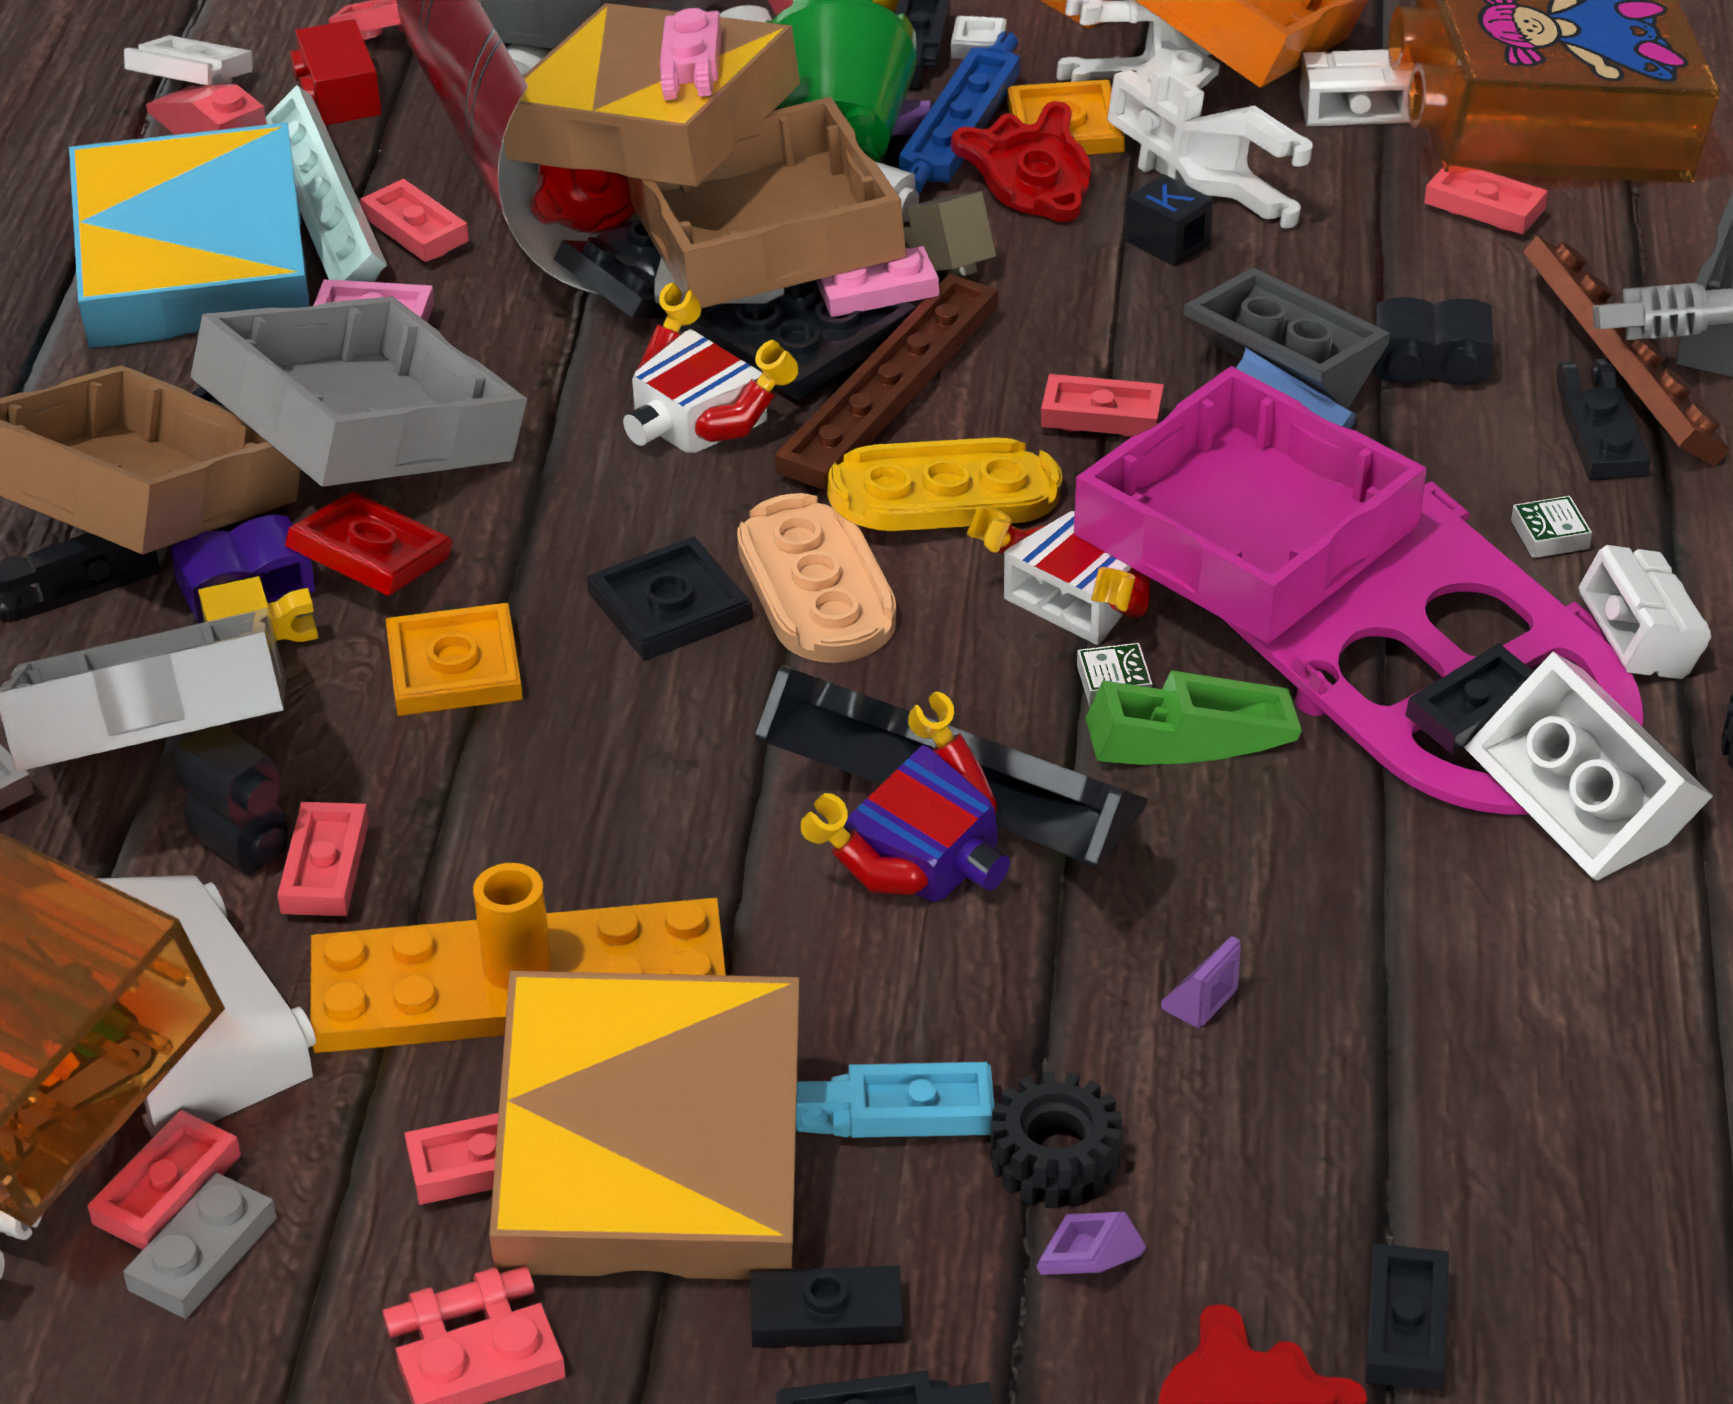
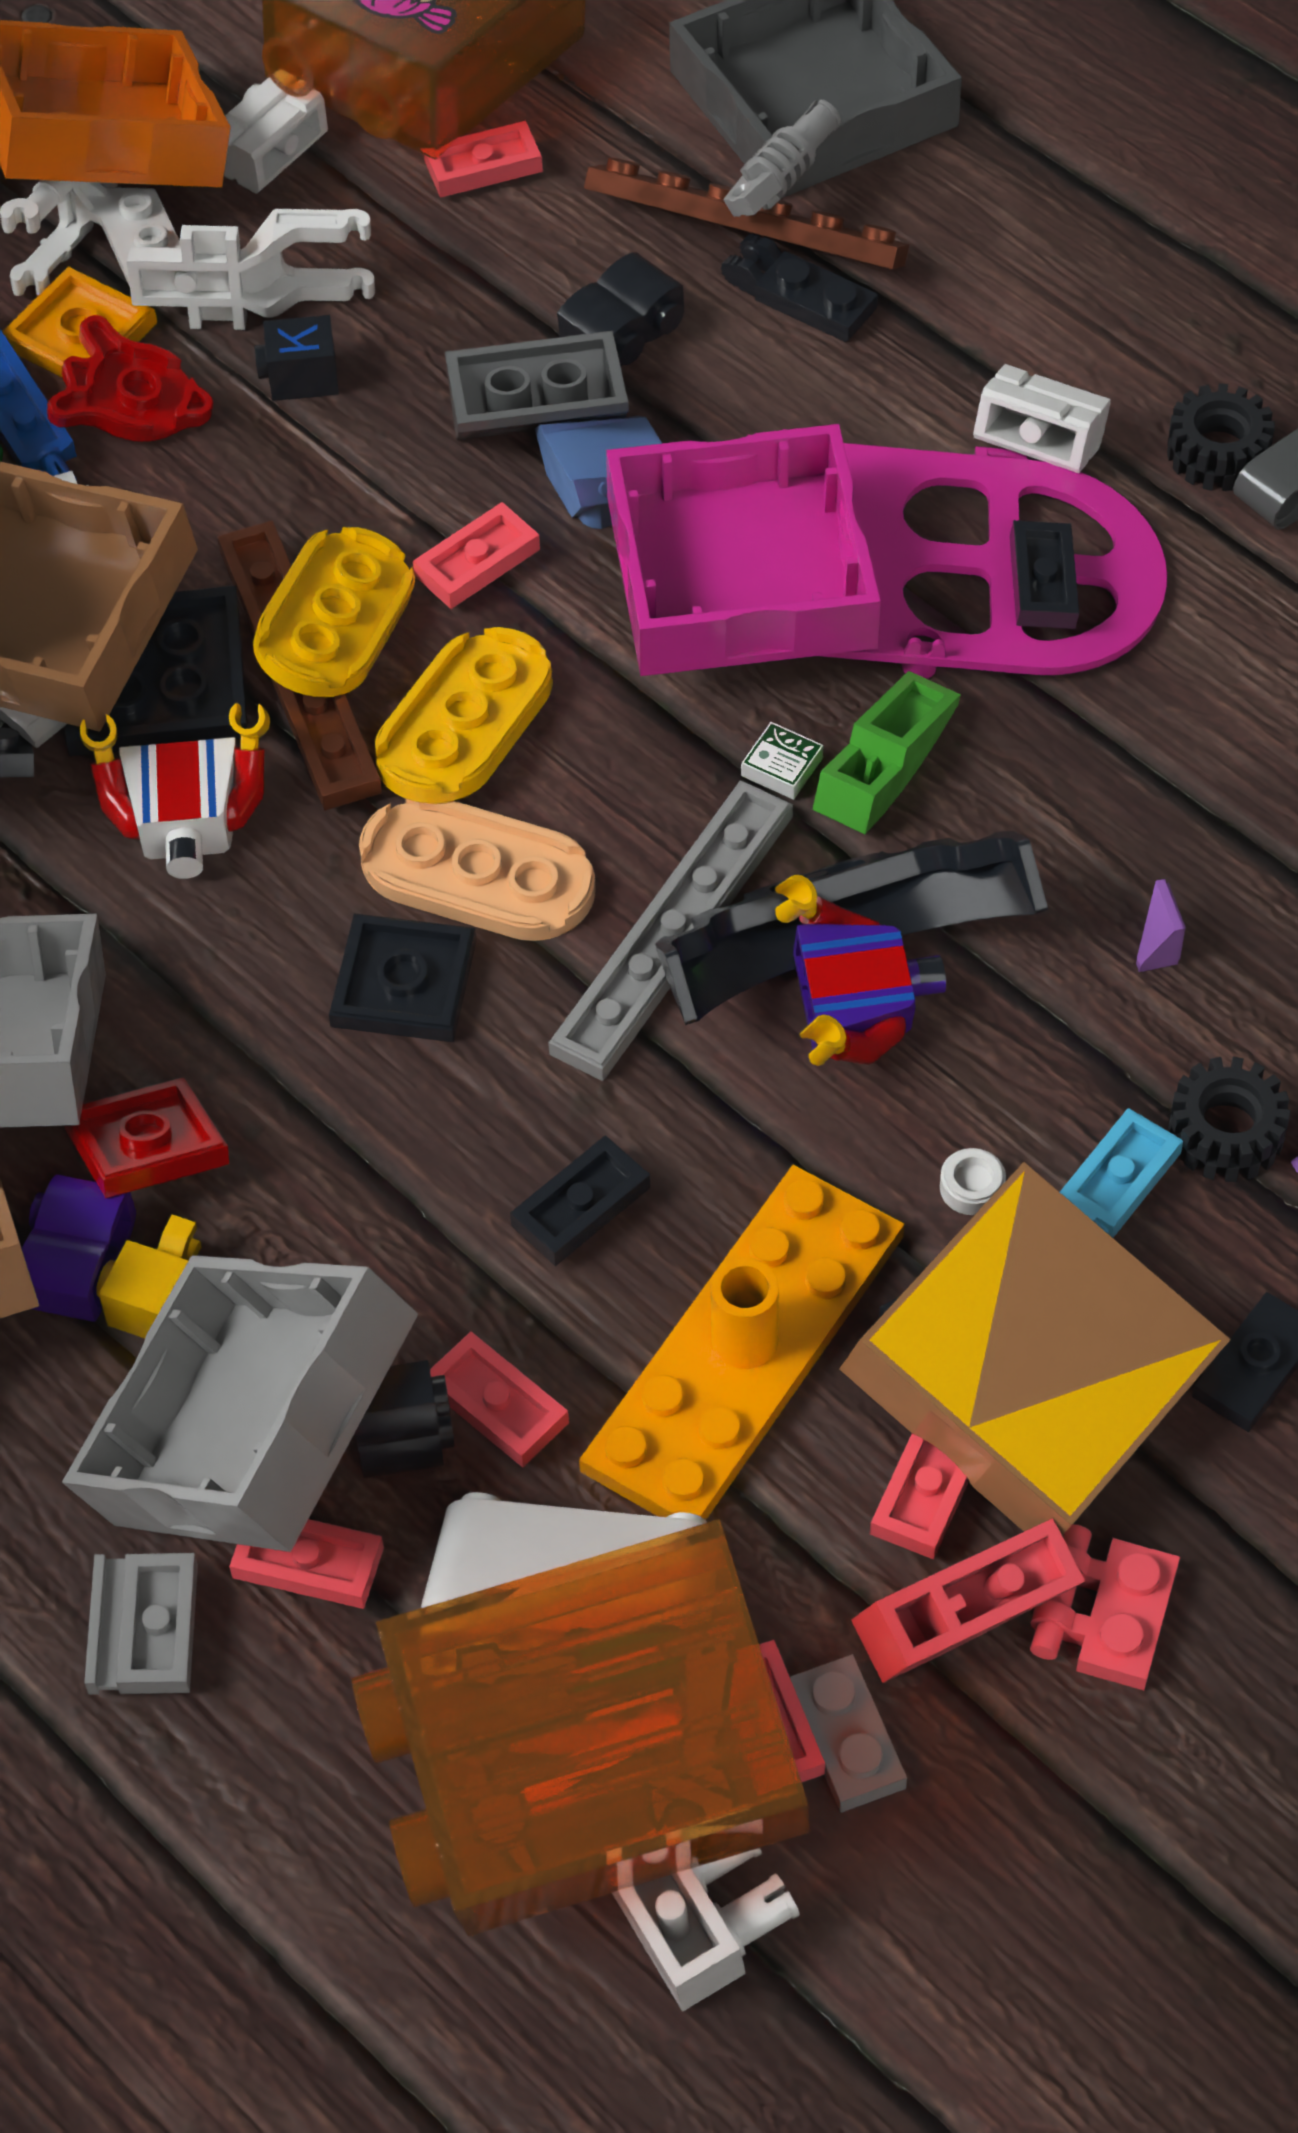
camera: 50 degrees left, 15 degrees up
(84, 831) = (323, 1564): none -> coral plate
(368, 1224) = (966, 1600): none -> coral slope
(453, 659) = (328, 1168): light orange tile -> none
(555, 799) = (580, 1200): none -> black plate
(826, 1020) = (970, 1179): none -> white tile
(881, 284) = (197, 590): bright pink plate -> none
(949, 362) = (333, 612): none -> yellow tile
(952, 232) = (182, 480): dark tan brick -> none
(979, 700) = (633, 977): none -> light grey tile
(1062, 574) = (666, 712): torso -> none
(1551, 527) = (883, 400): tile -> none
(1586, 769) = (1168, 568): white slope -> none

